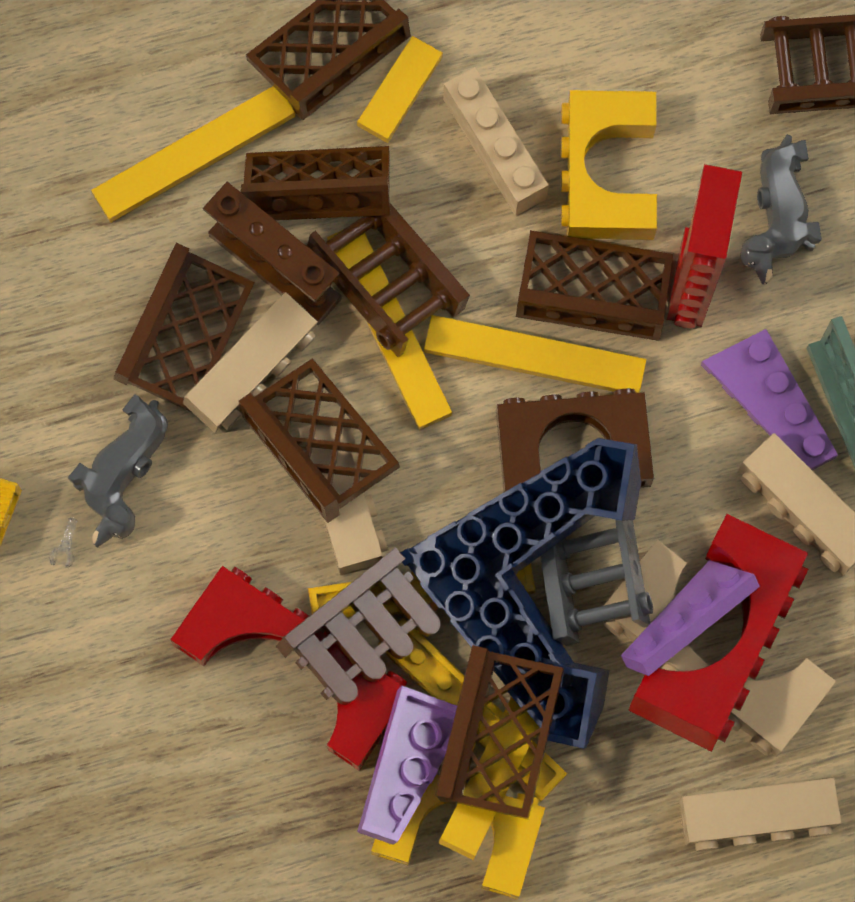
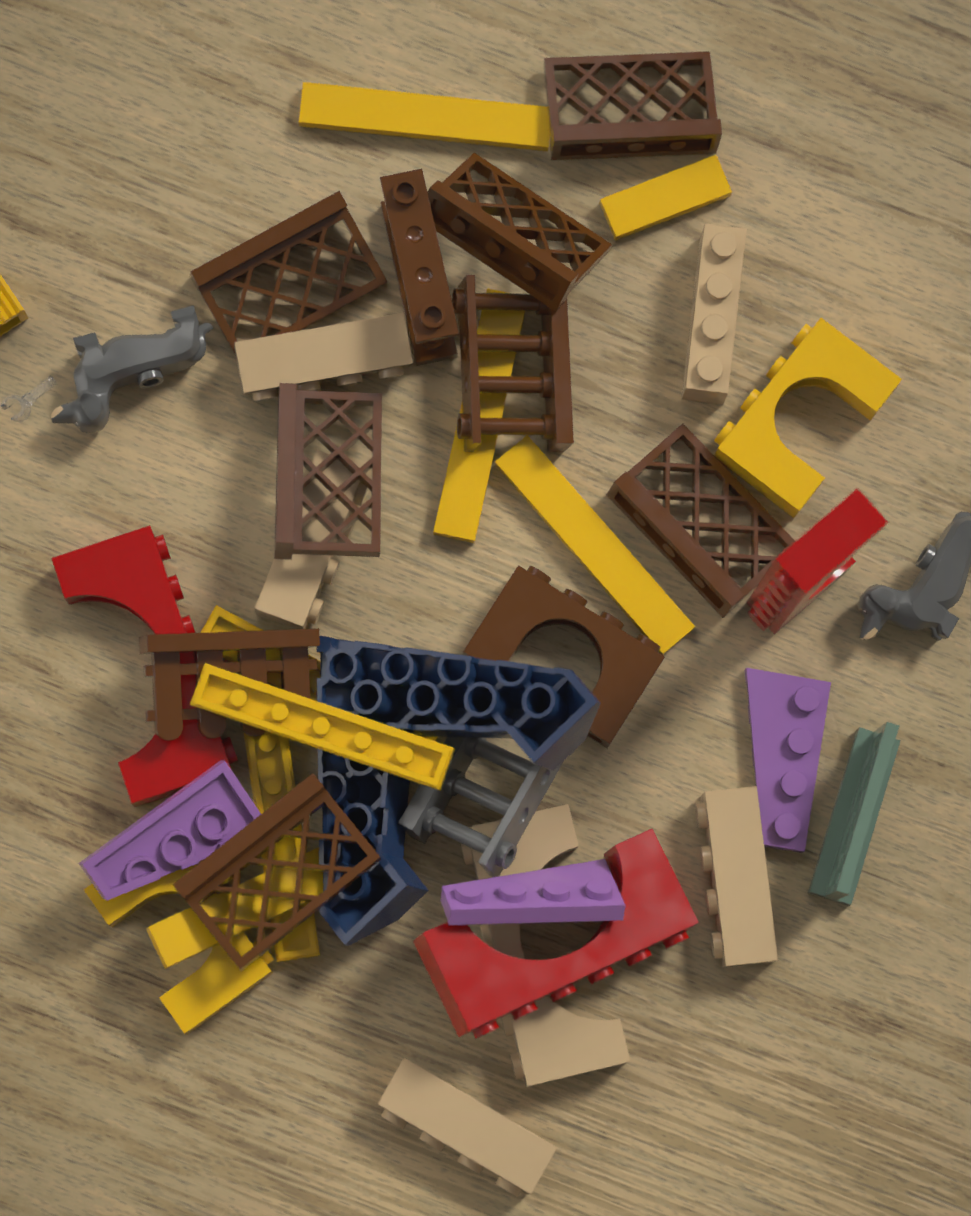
camera: 30 degrees right, 5 degrees up
(452, 610) = (322, 726): none -> yellow tile

